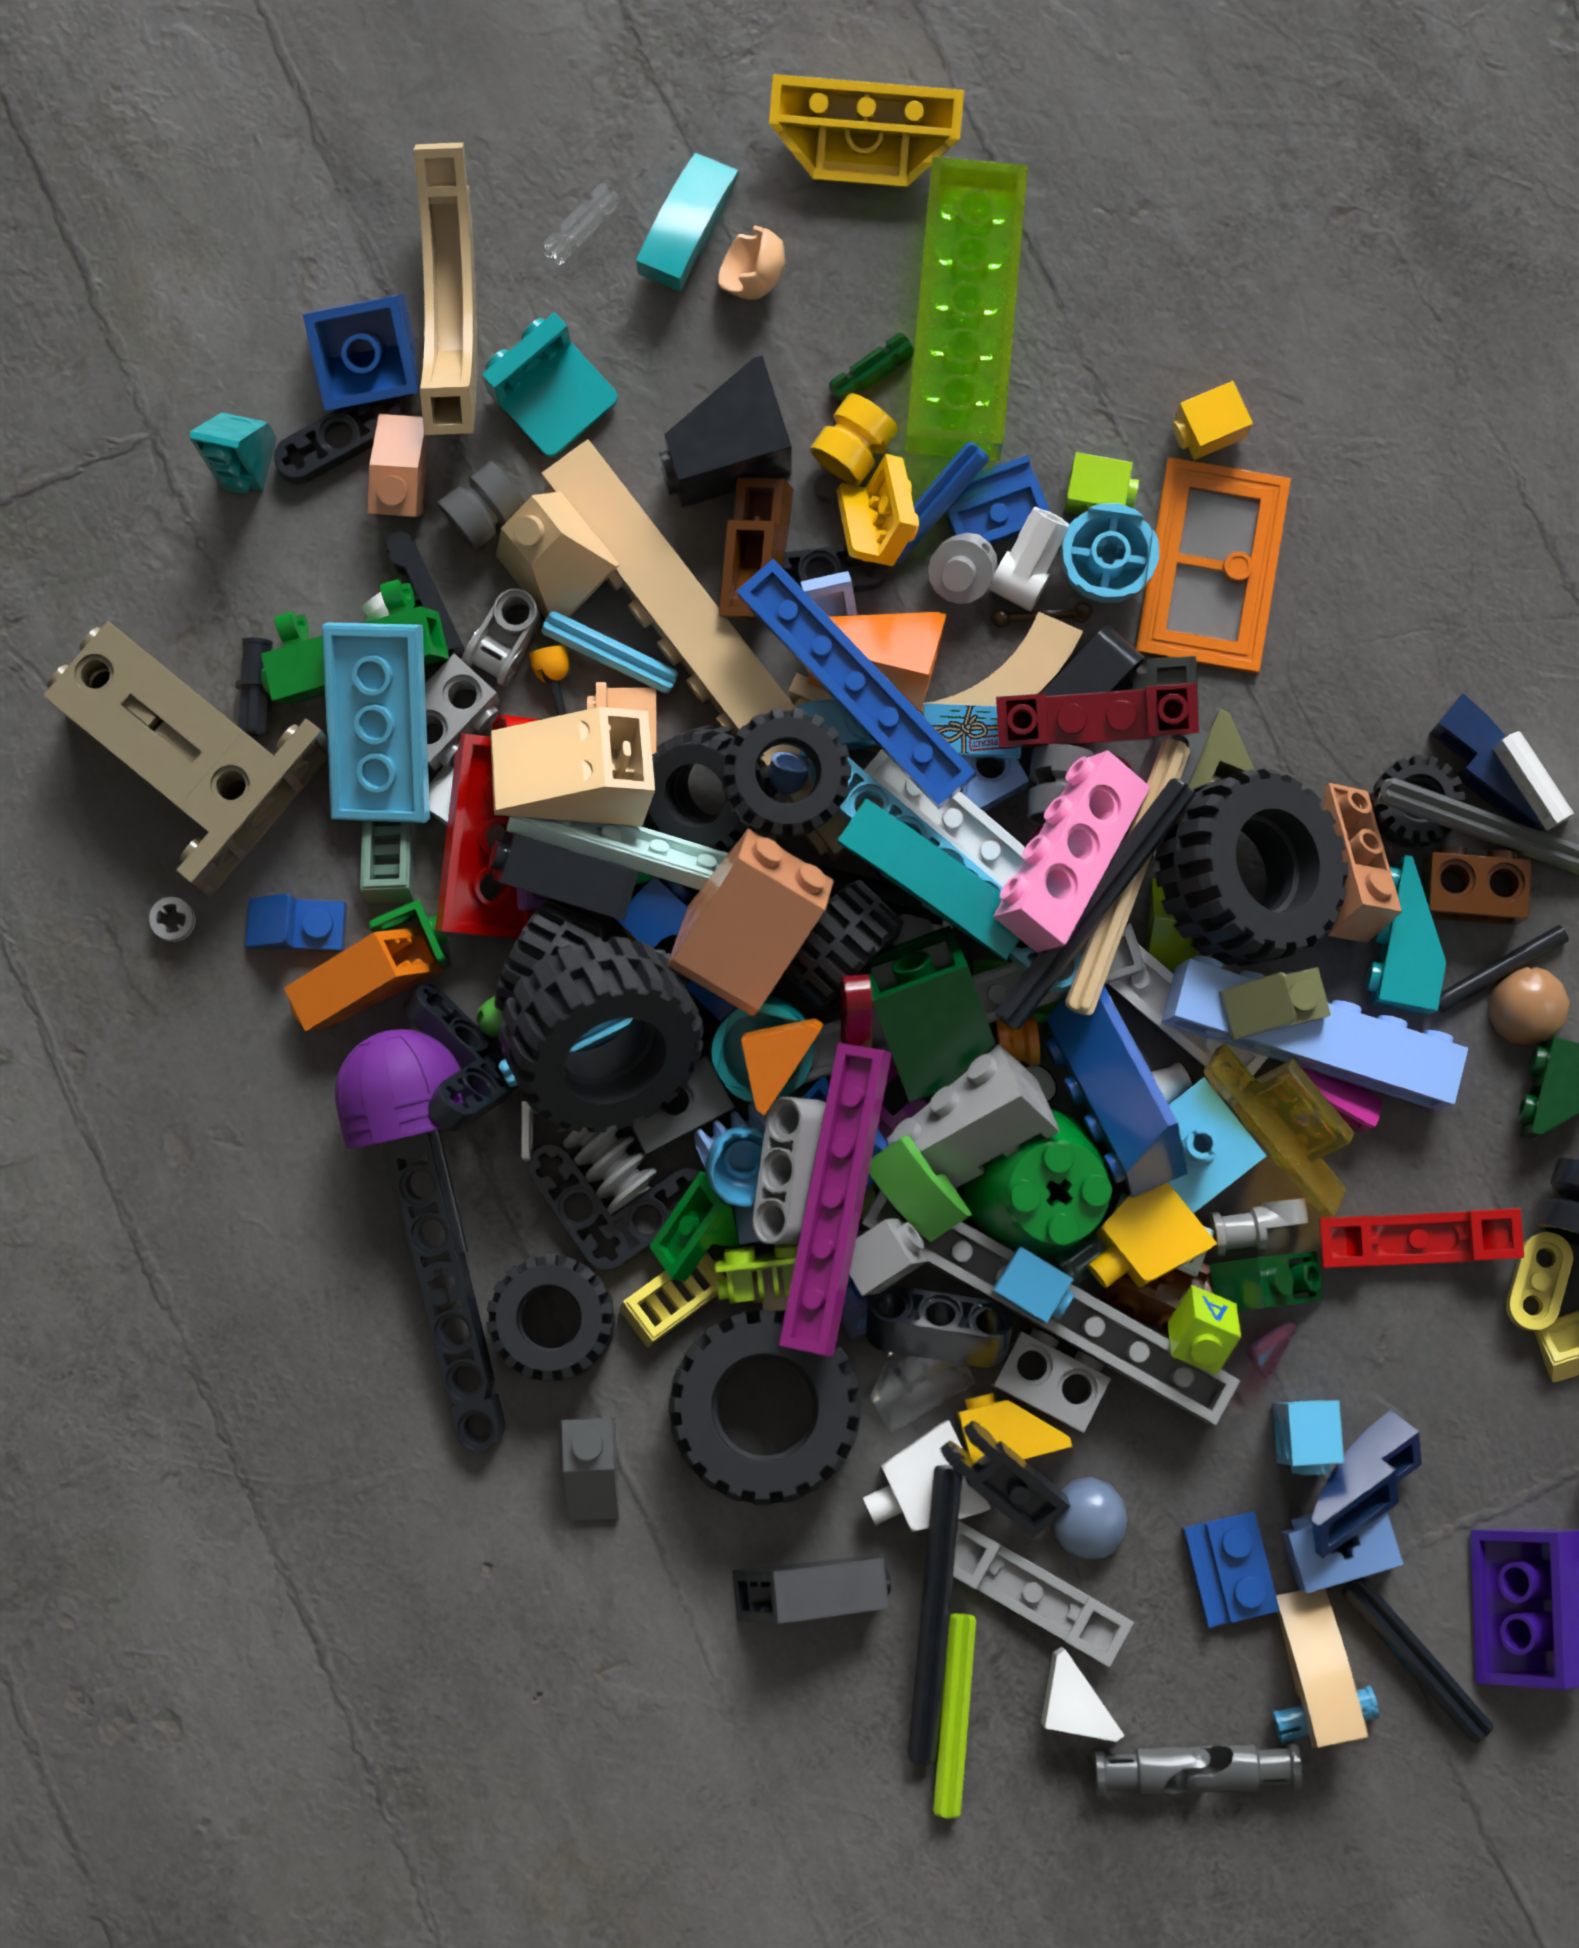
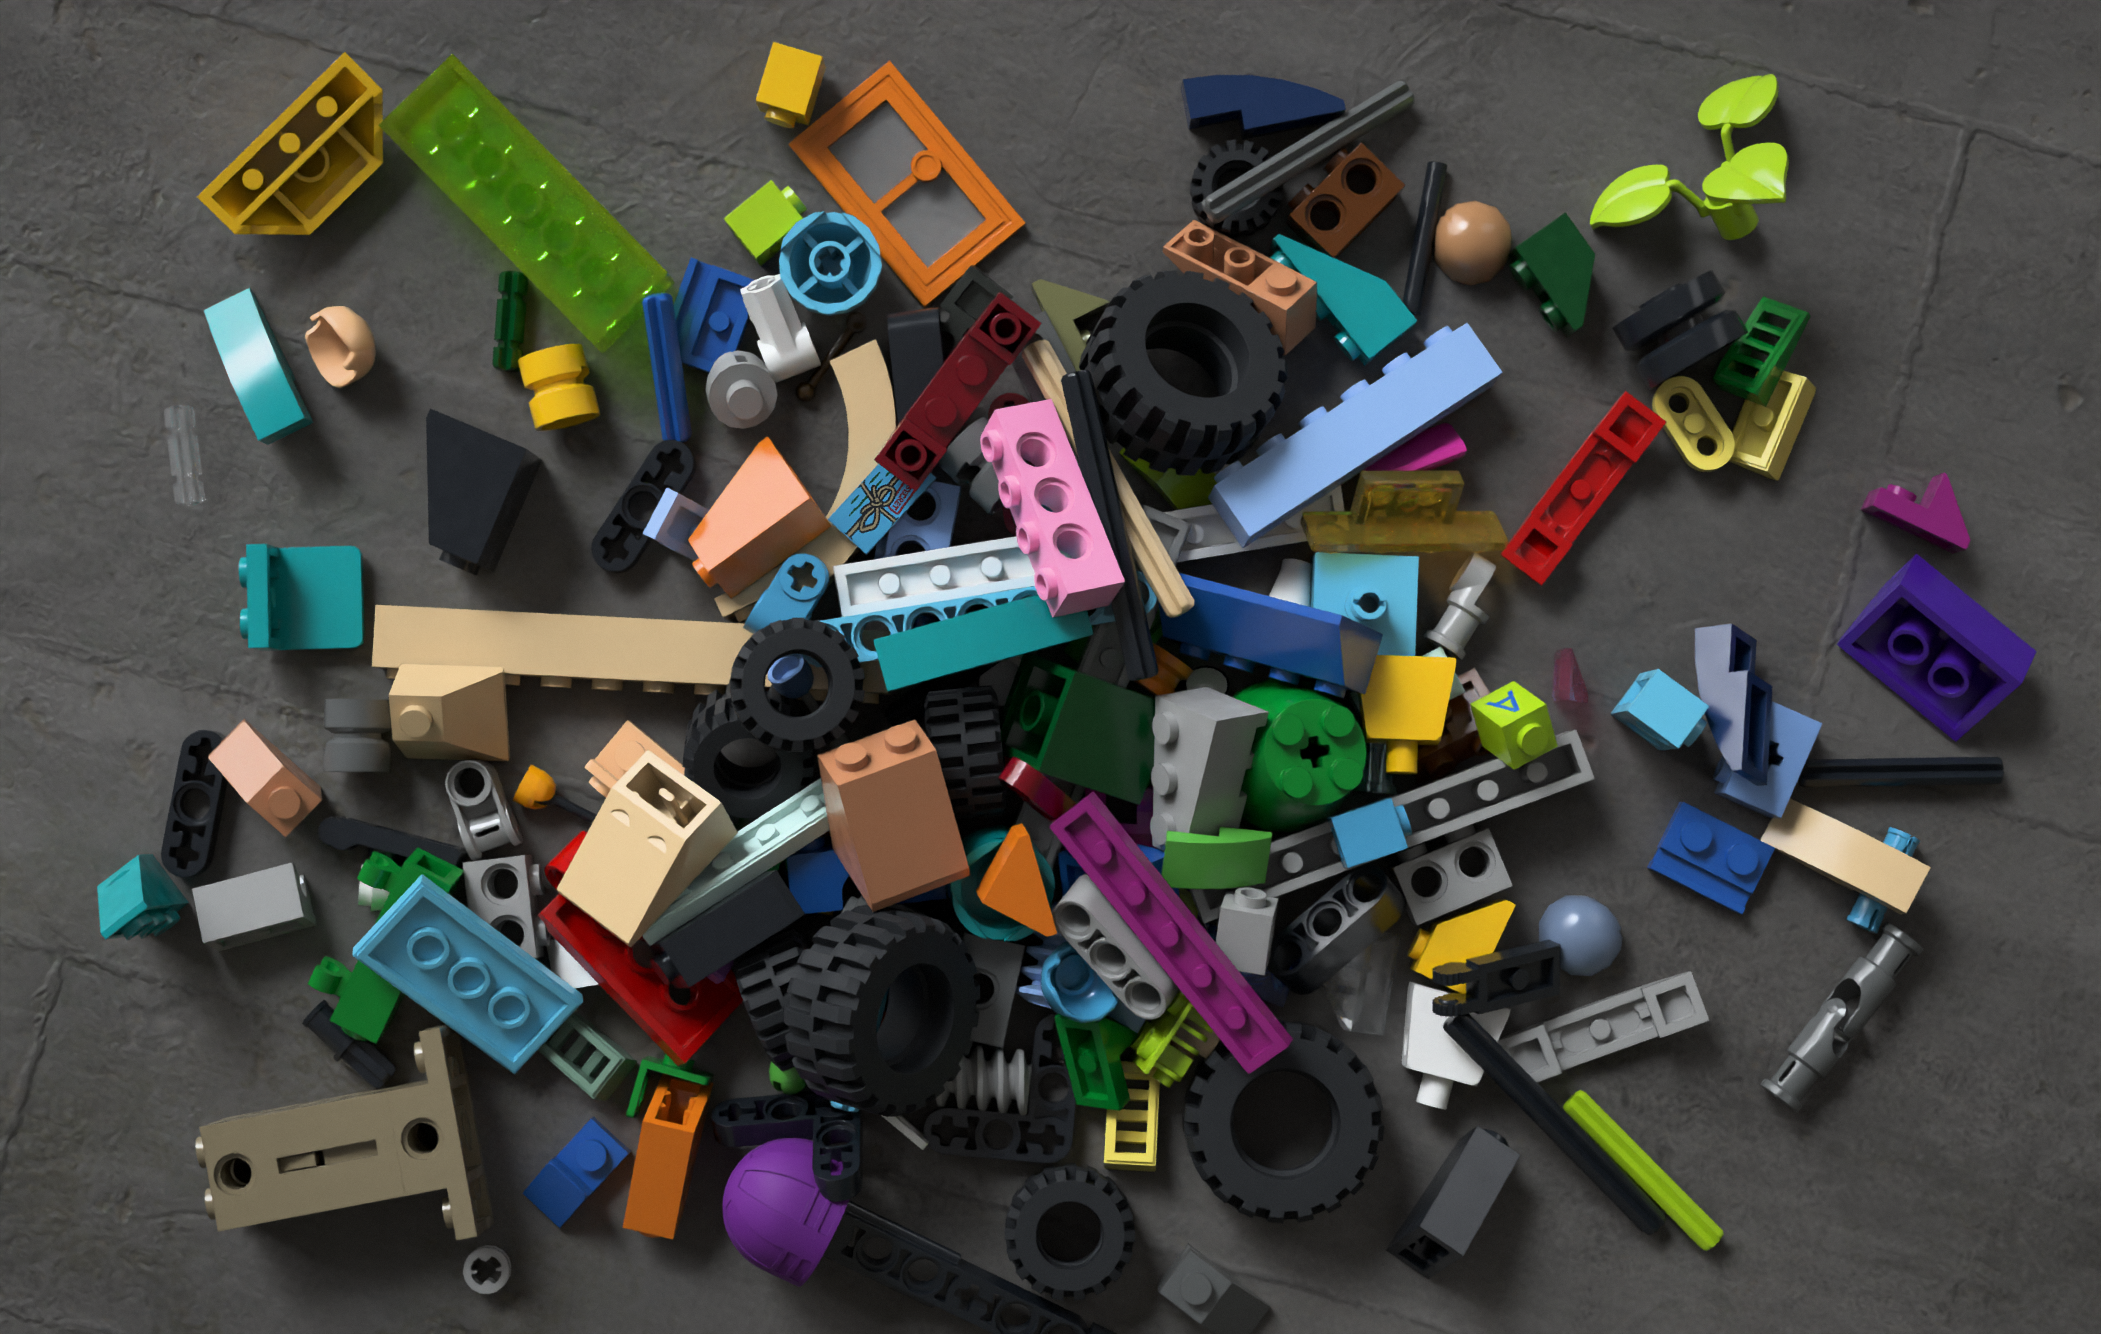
camera: 50 degrees left, 5 degrees up
(297, 536) = (253, 907): none -> light grey hinge
(363, 351) = (142, 726): blue slope -> none
(450, 335) = (155, 615): tan arch -> none
(609, 652) = (566, 733): medium azure axle -> none
(754, 537) = (582, 545): reddish brown slope -> none
(856, 684) = (768, 564): blue plate -> none
(881, 516) = (639, 421): yellow bracket -> none
(1073, 1704) = (1713, 1071): white slope -> none
(1269, 1280) = (1515, 637): dark green slope -> none
(1274, 1003) = (1307, 449): olive slope -> none
(1533, 780) = (1301, 84): white slope -> none

